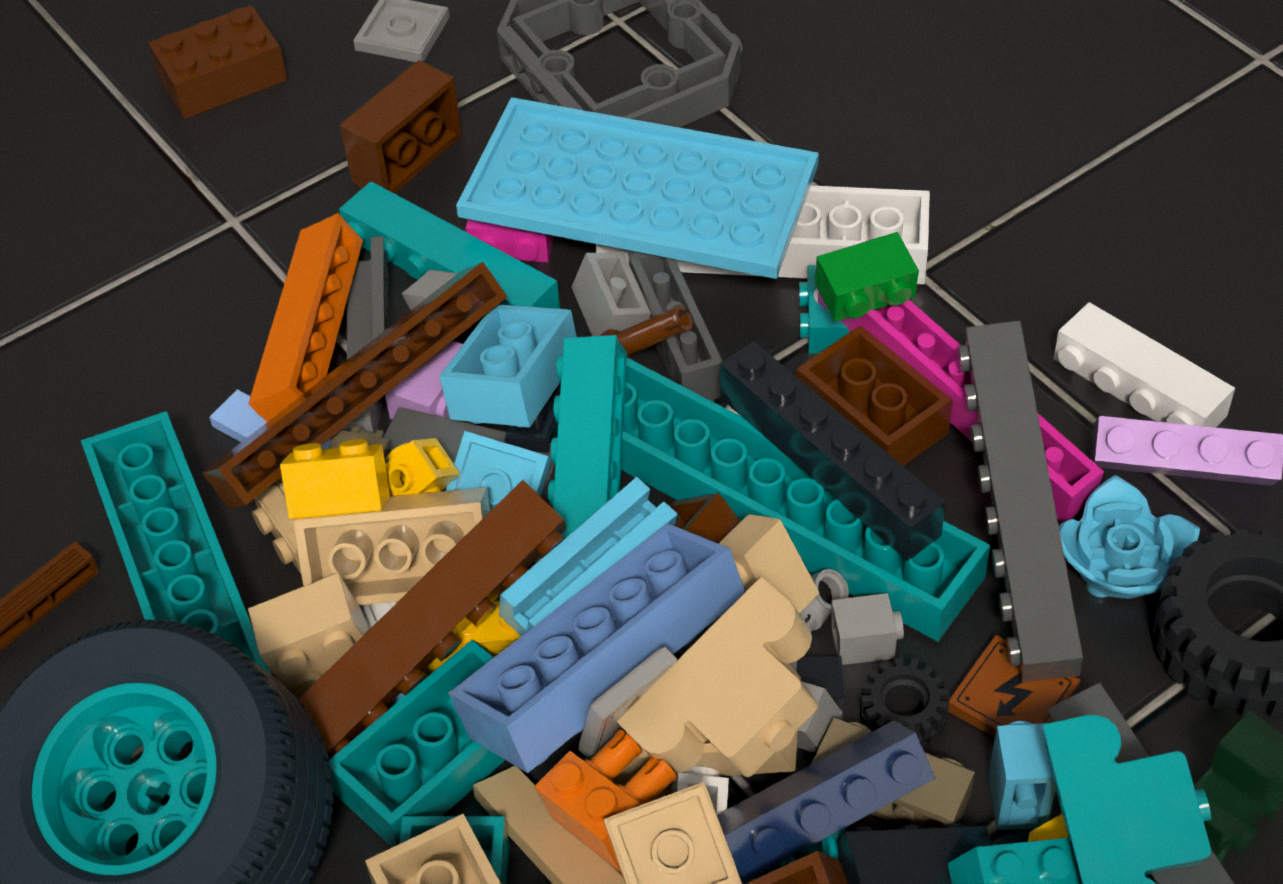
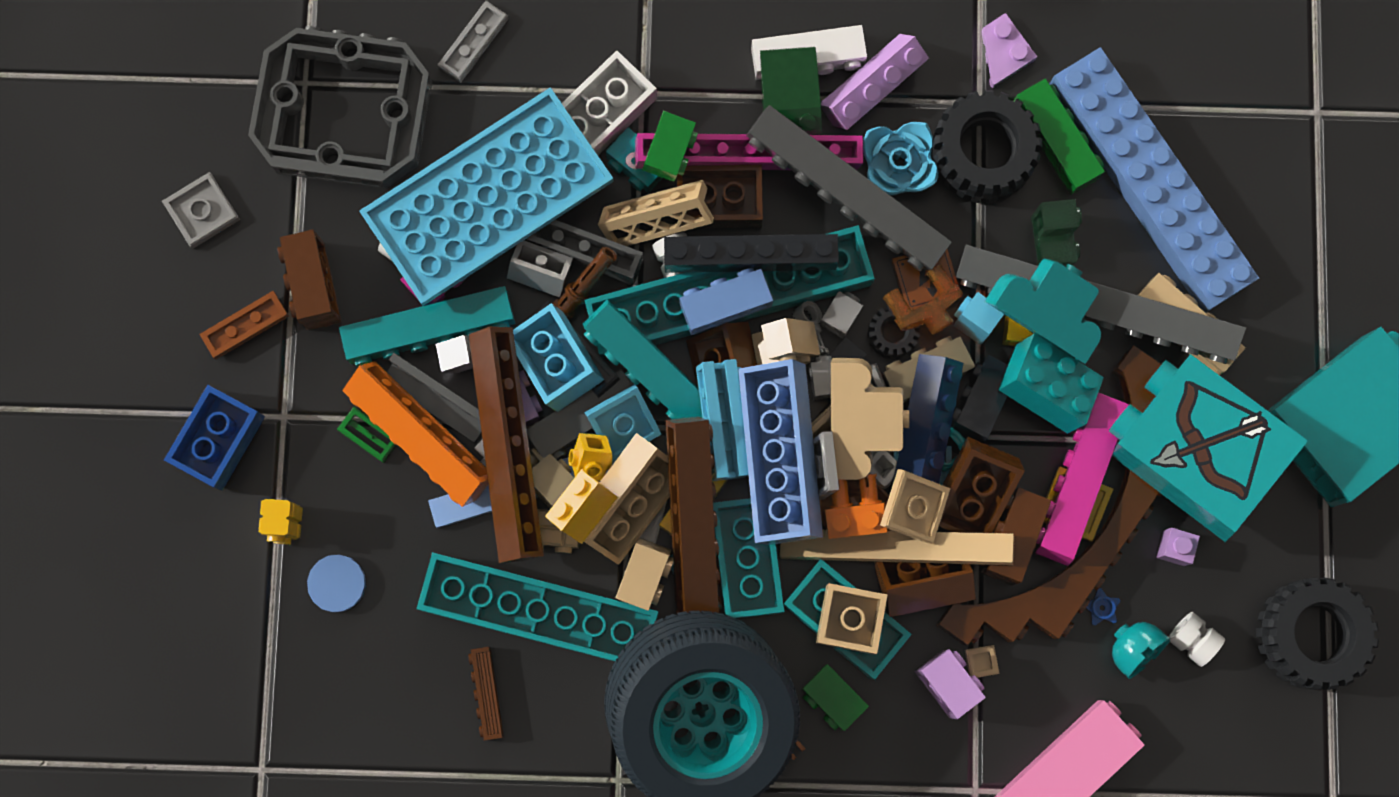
camera: 55 degrees left, 30 degrees up
(66, 378) = (336, 583): none -> medium blue tile
(98, 269) = (280, 521): none -> yellow brick
(152, 170) = (214, 438): none -> blue brick
(218, 61) = (142, 338): reddish brown brick -> none
(258, 320) = (388, 449): none -> green tile
(297, 123) = (244, 325): none -> dark orange plate
(743, 467) = (725, 300): none -> medium blue brick
(791, 336) = (651, 209): none -> tan fence
(807, 104) = (473, 41): none -> light grey tile
(968, 711) = (932, 313): none -> clear orange connector
(1081, 371) = (792, 86): none -> dark green slope

